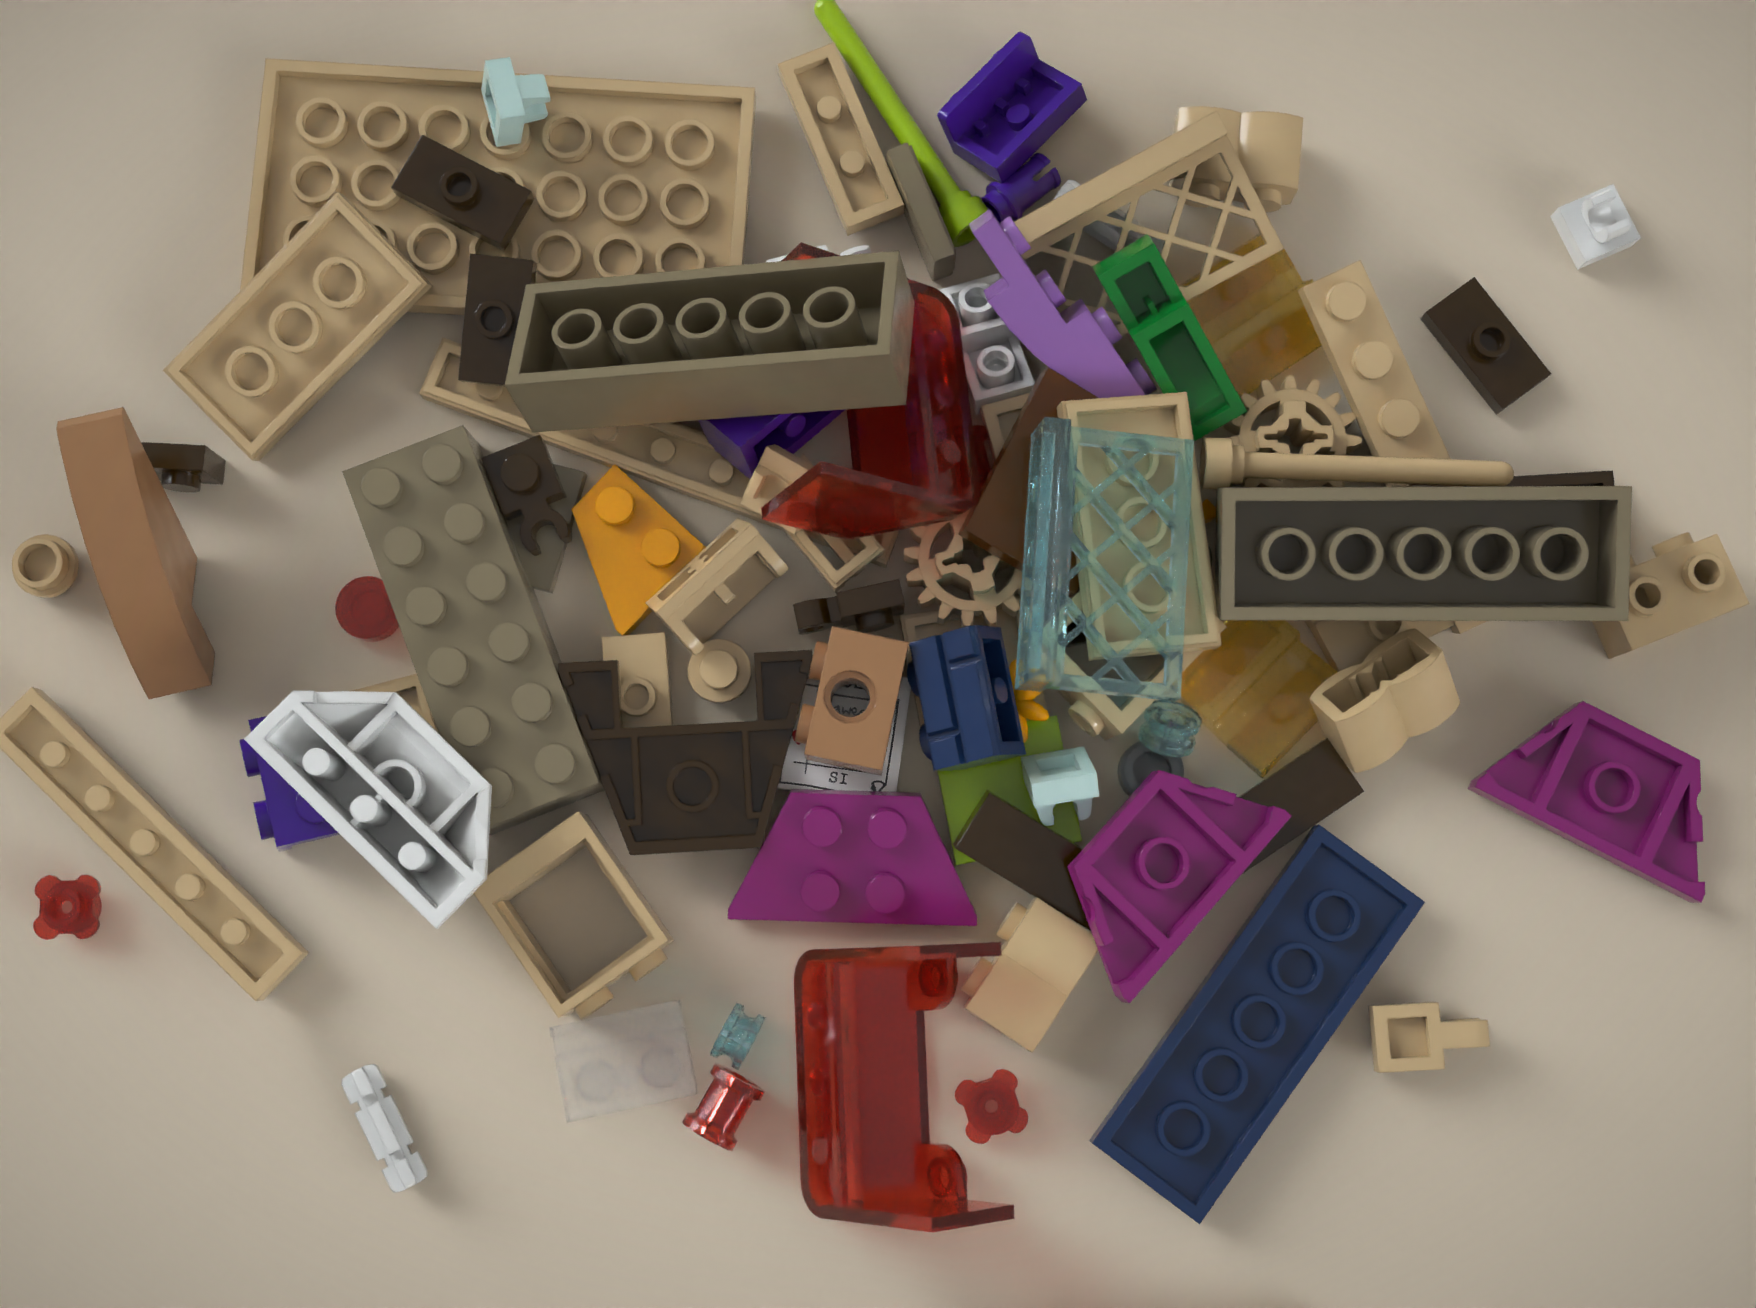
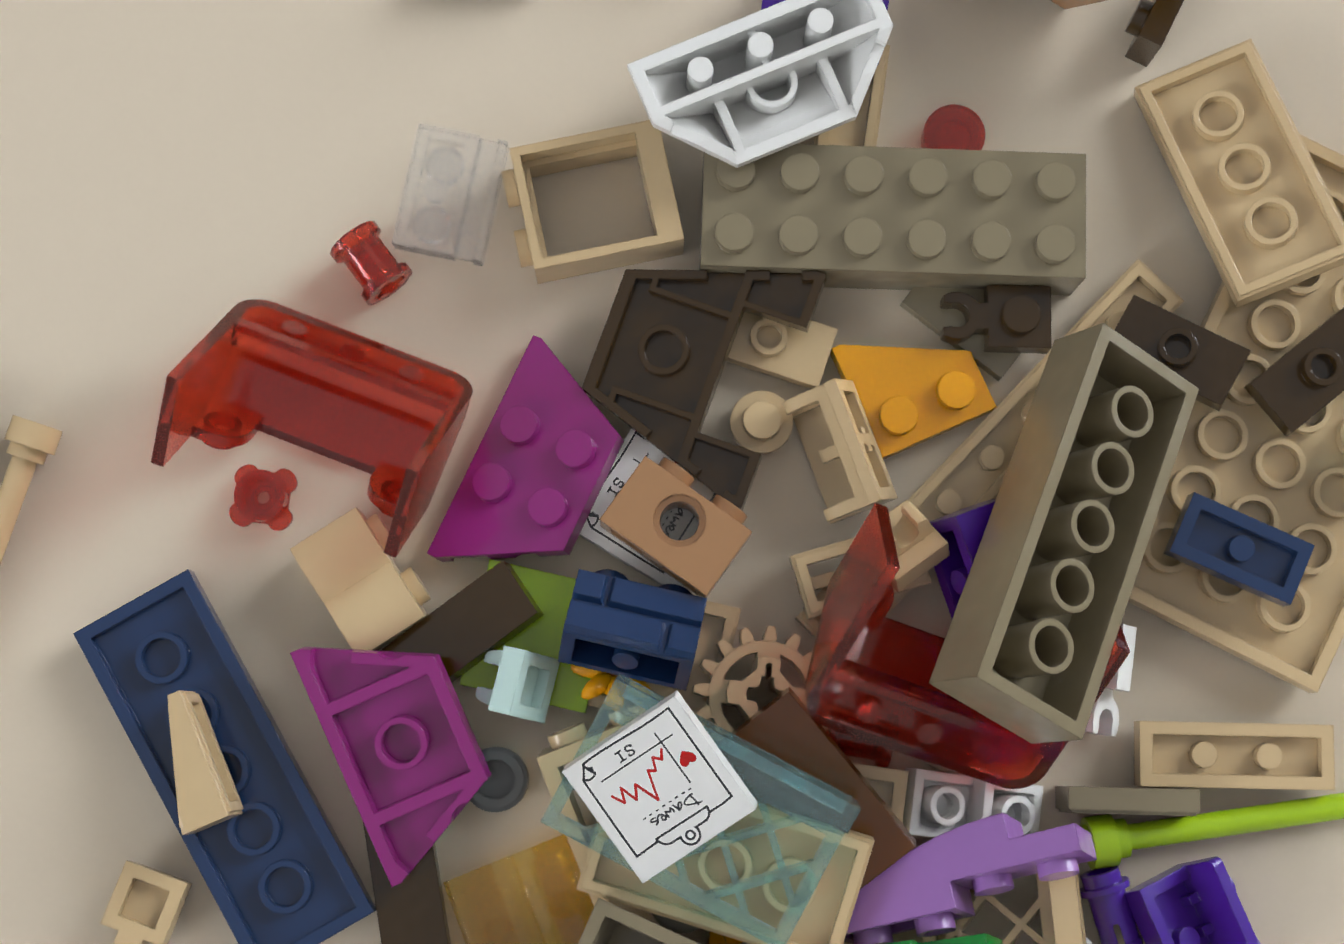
camera: 110 degrees right, 0 degrees up
(658, 197) = (1239, 549): none -> dark blue plate
(737, 1036) = (426, 300): clear light blue bush -> none
(866, 607) = (760, 581): dark brown plate -> none
(1105, 599) = (660, 787): none -> white tile
(1170, 728) = (520, 813): clear light blue bush -> none
(1276, 1032) = (201, 774): none -> tan slope

